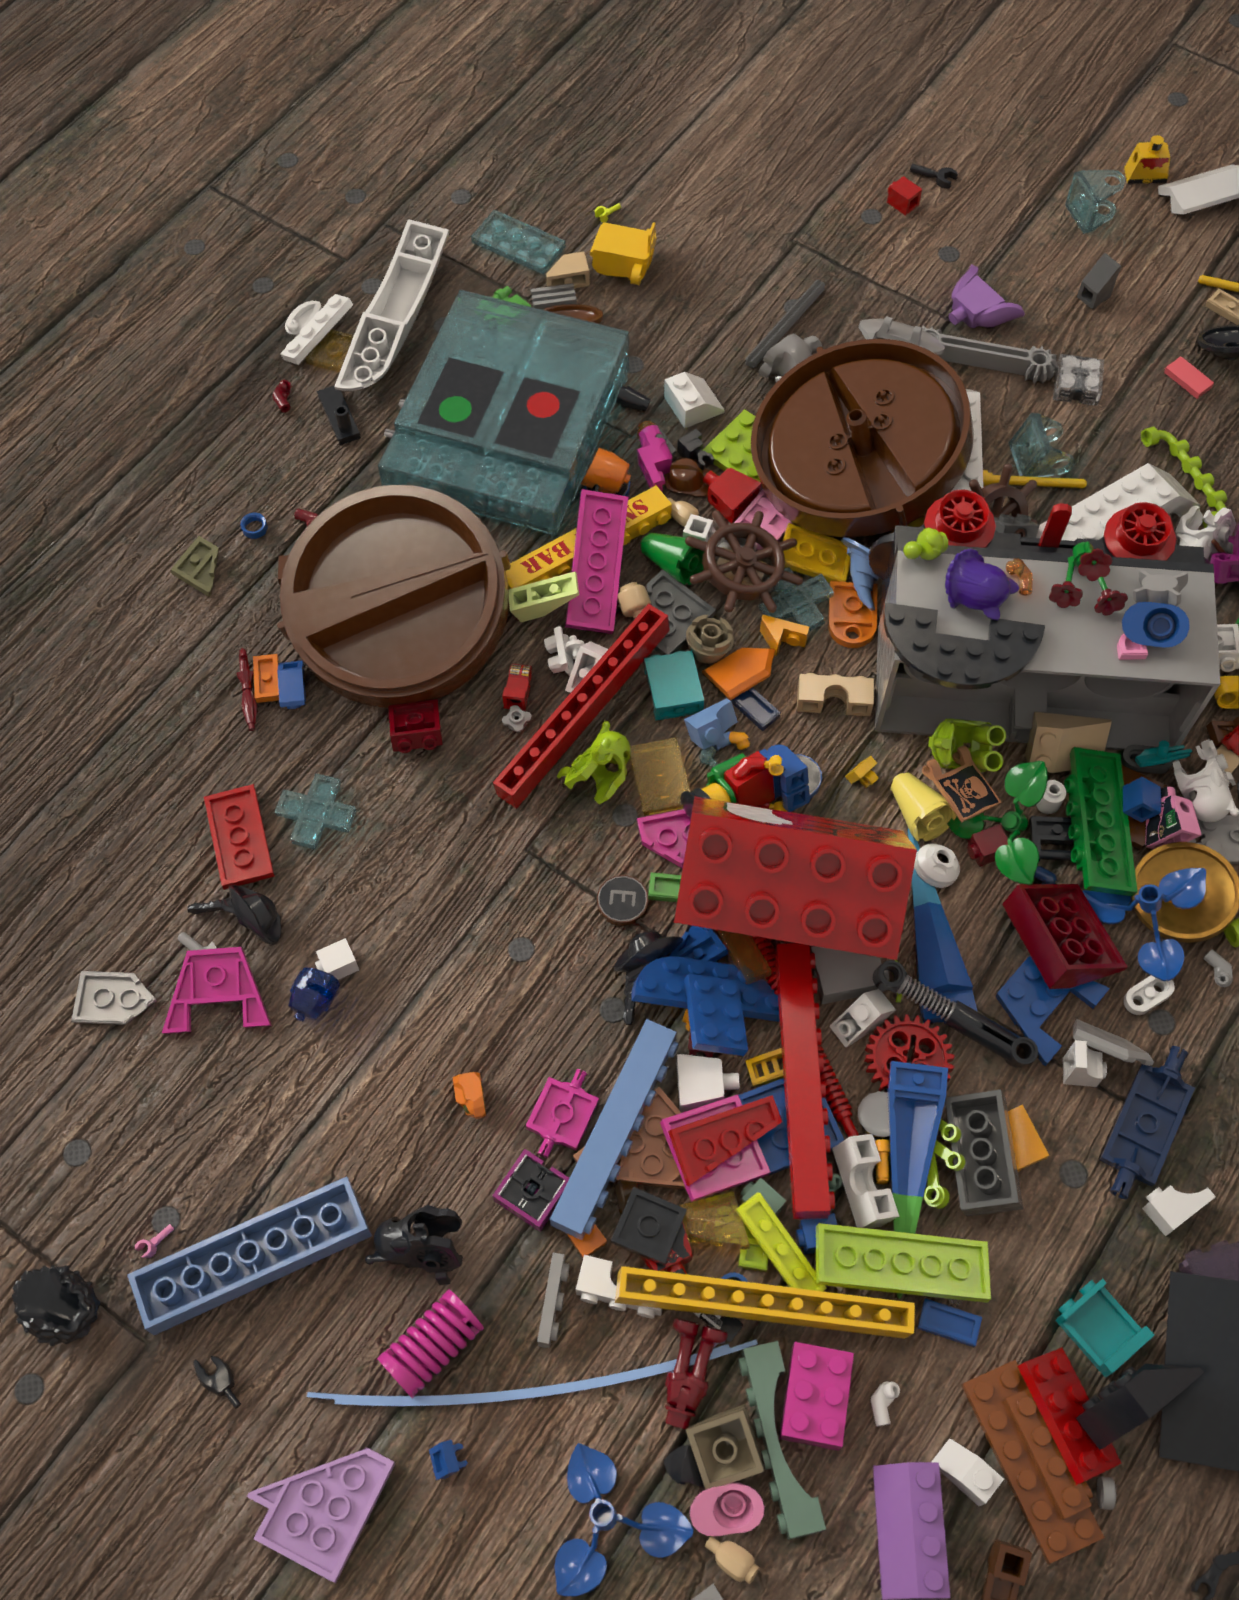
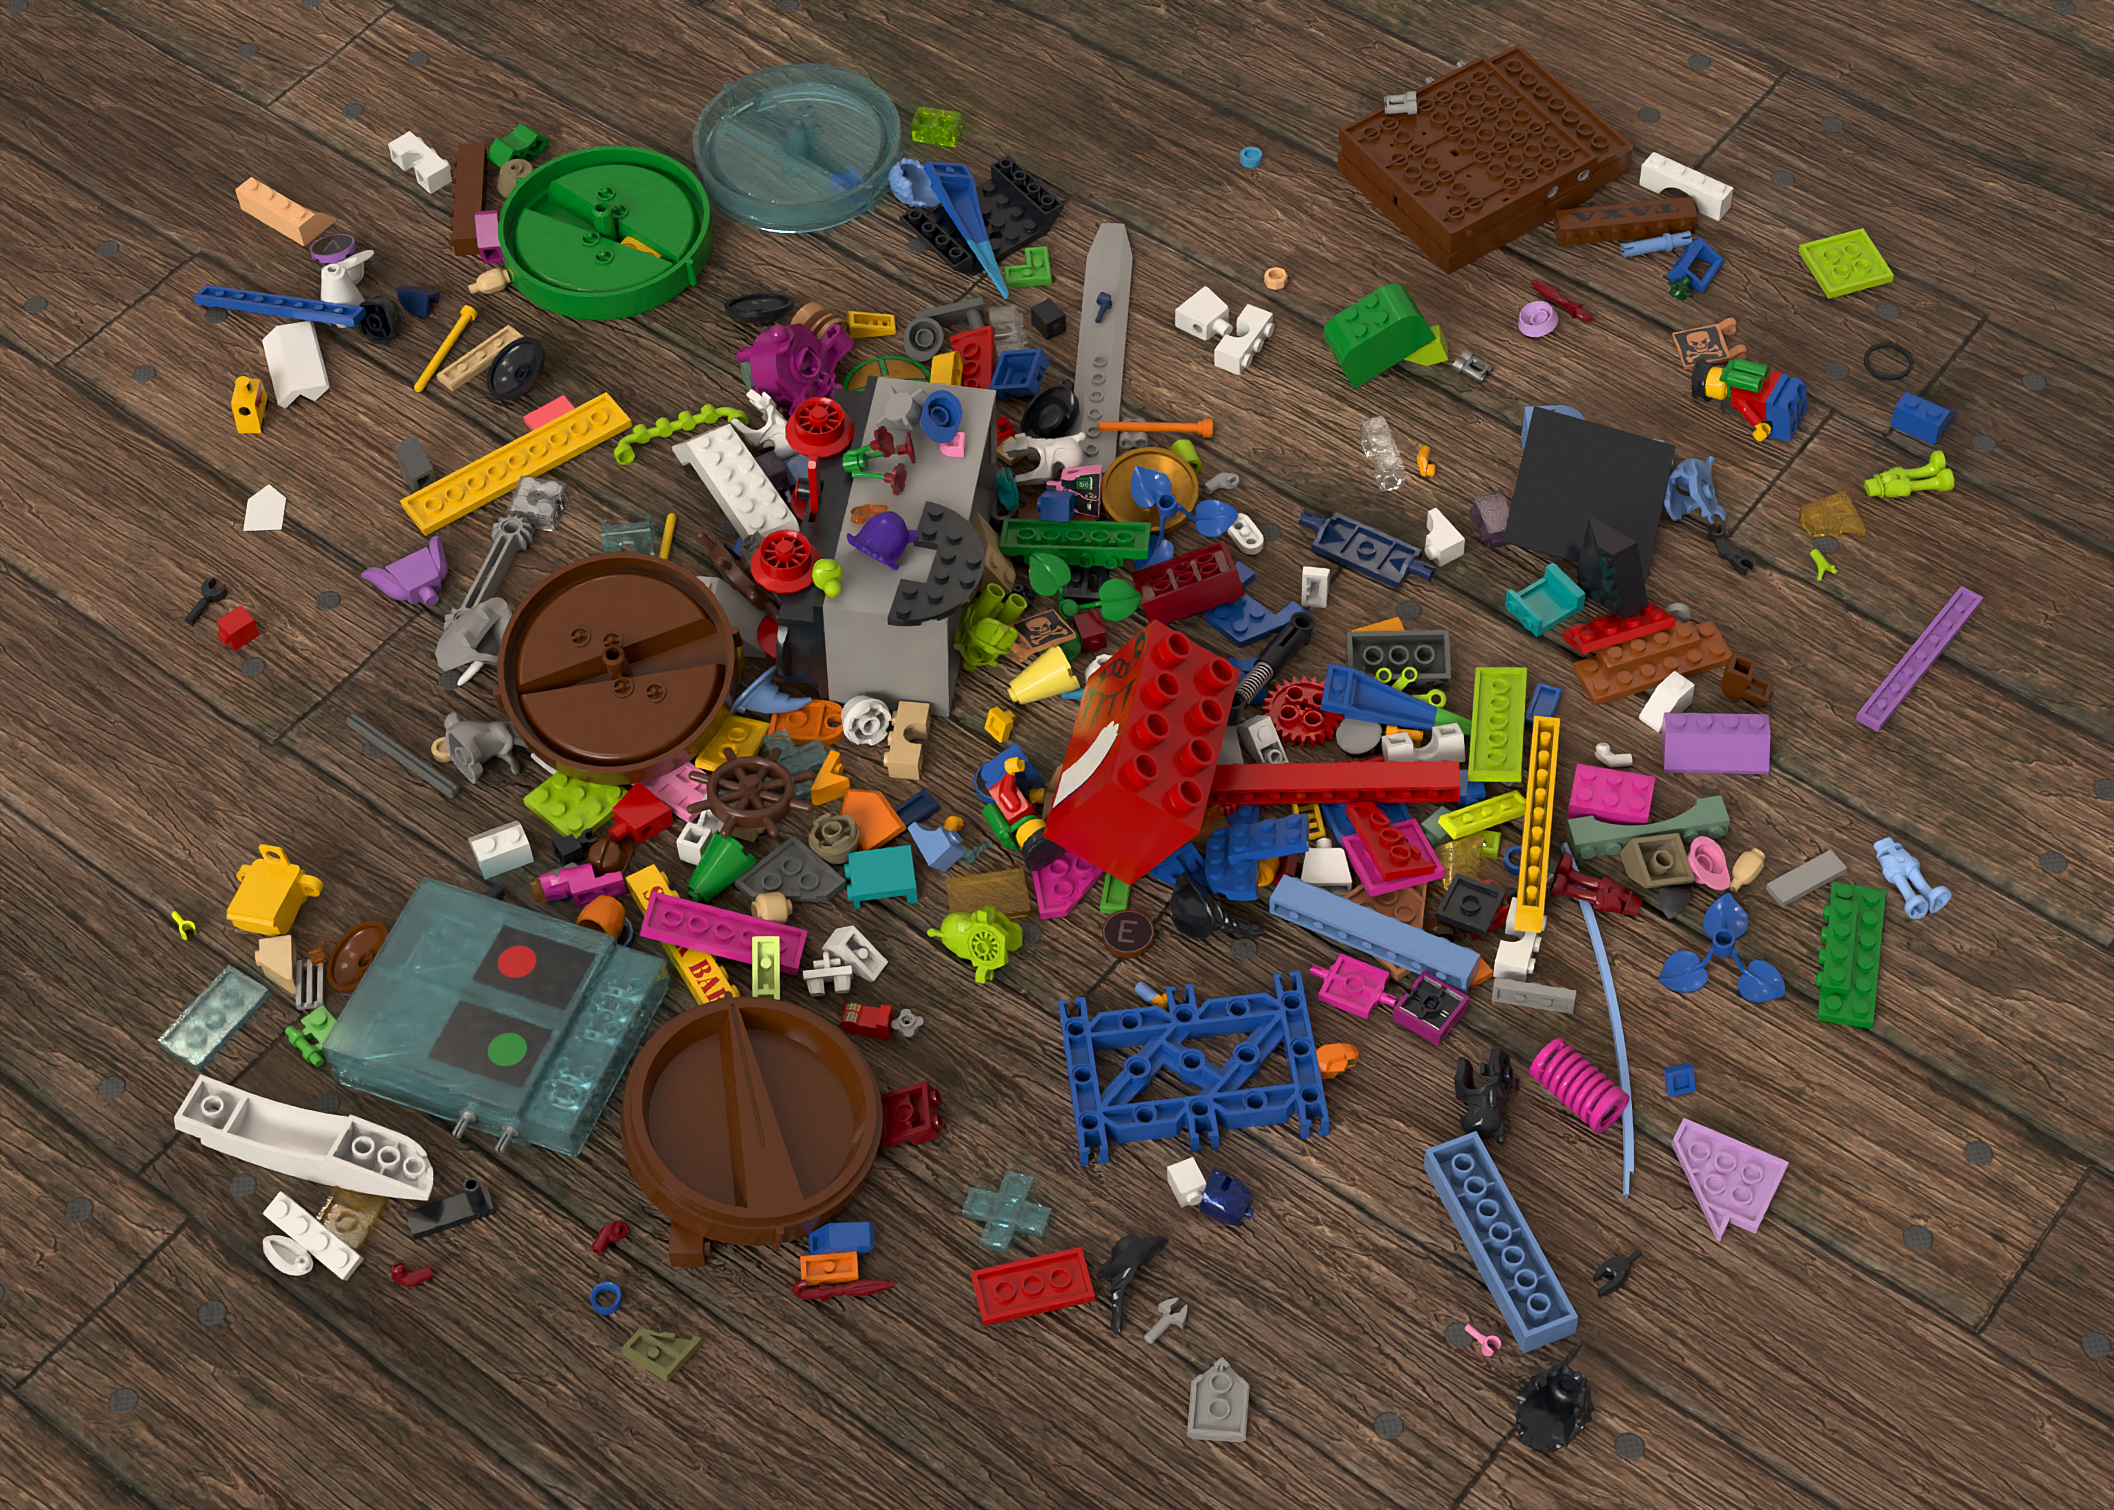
camera: 85 degrees left, 10 degrees down
(212, 978) = (1204, 1295): dark pink wing -> none
(422, 885) = (1220, 1096): none -> blue piece
(546, 921) = (1151, 996): none -> arm
(575, 294) = (317, 955): none -> clear orange hand
(581, 706) = (908, 951): red brick -> none
(681, 511) = (662, 857): tan plant -> none
(850, 652) = (865, 720): none -> white cone
(1040, 198) = (265, 510): none -> white sticker
(1089, 192) = (294, 456): clear light blue hose -> none
(1110, 1043) = (1293, 565): light grey tile -> none
(1126, 360) = (526, 456): none -> yellow plate

